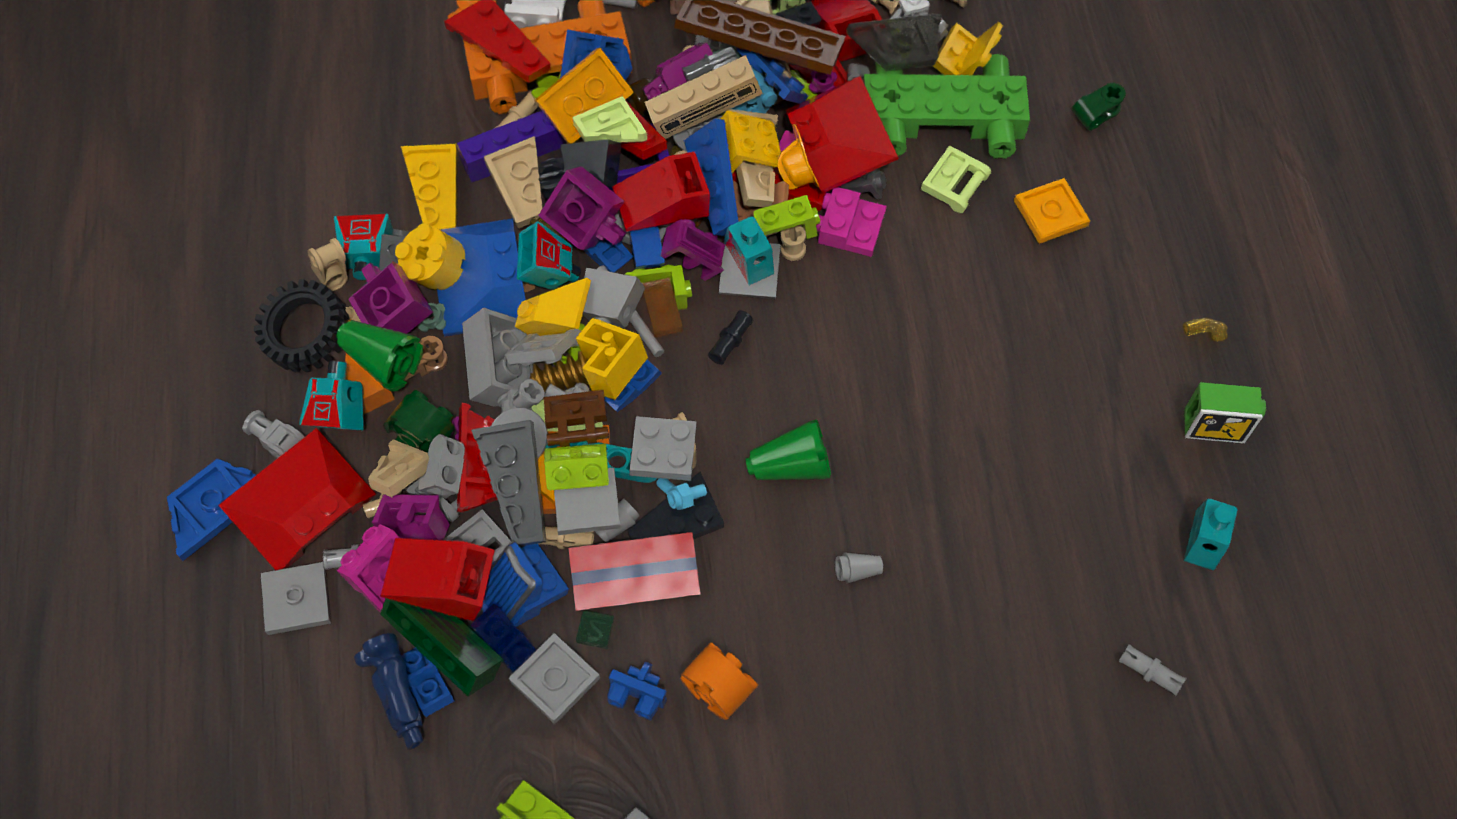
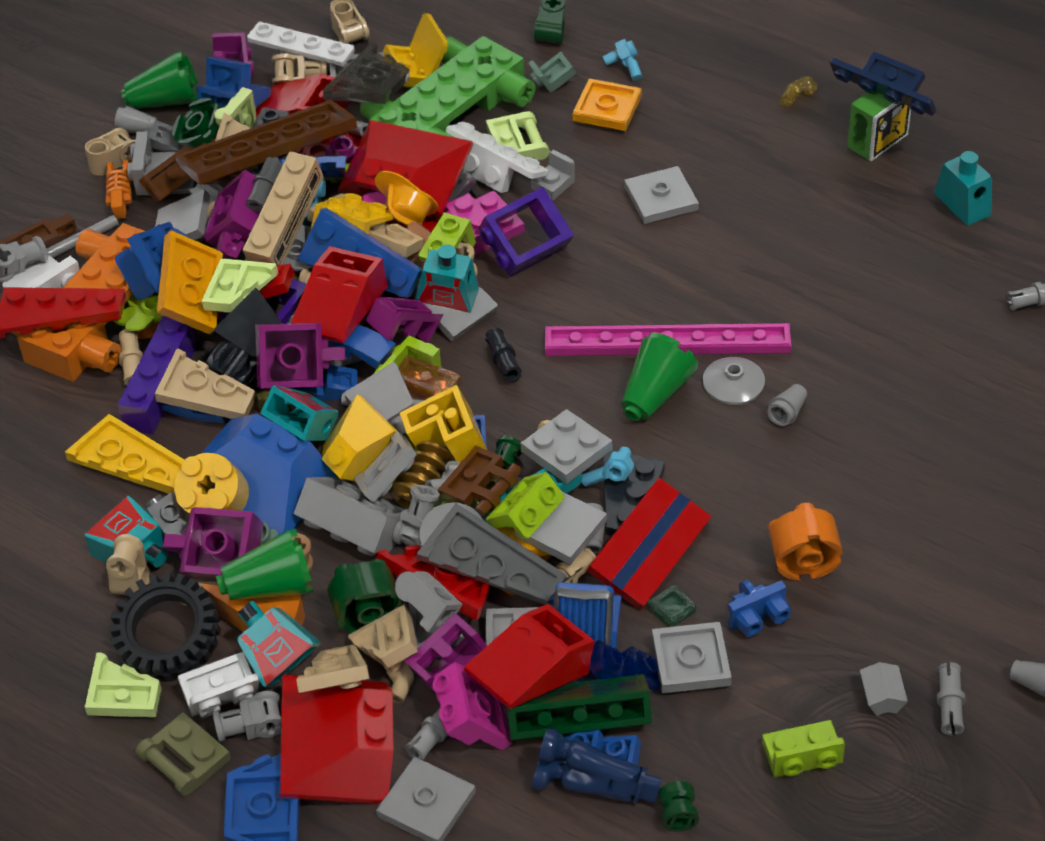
camera: 45 degrees left, 15 degrees down
(229, 419) = (191, 746): none -> olive plate
(236, 341) = (121, 691): none -> yellowish green wing
(277, 395) = (218, 685): none -> white bracket
(338, 459) = (334, 667): none -> tan wing
(406, 774) = (678, 801): none -> dark green wheel
(628, 414) = (510, 452): none -> dark green bush
(662, 43) = (187, 214): none -> light grey tile
(826, 242) = (548, 218): none -> dark purple window
(849, 521) = (733, 380): none -> light grey dish
(853, 436) = (696, 338): none -> dark pink tile
(912, 180) = (492, 161): none -> white bracket
(941, 234) = (559, 175): none -> light grey bracket
(995, 318) = (661, 195): none -> light grey plate
(1046, 149) = (553, 72): none -> sand green bracket
(1118, 180) = (625, 52): none -> medium azure piece
(1249, 392) = (887, 77): none -> dark blue bracket

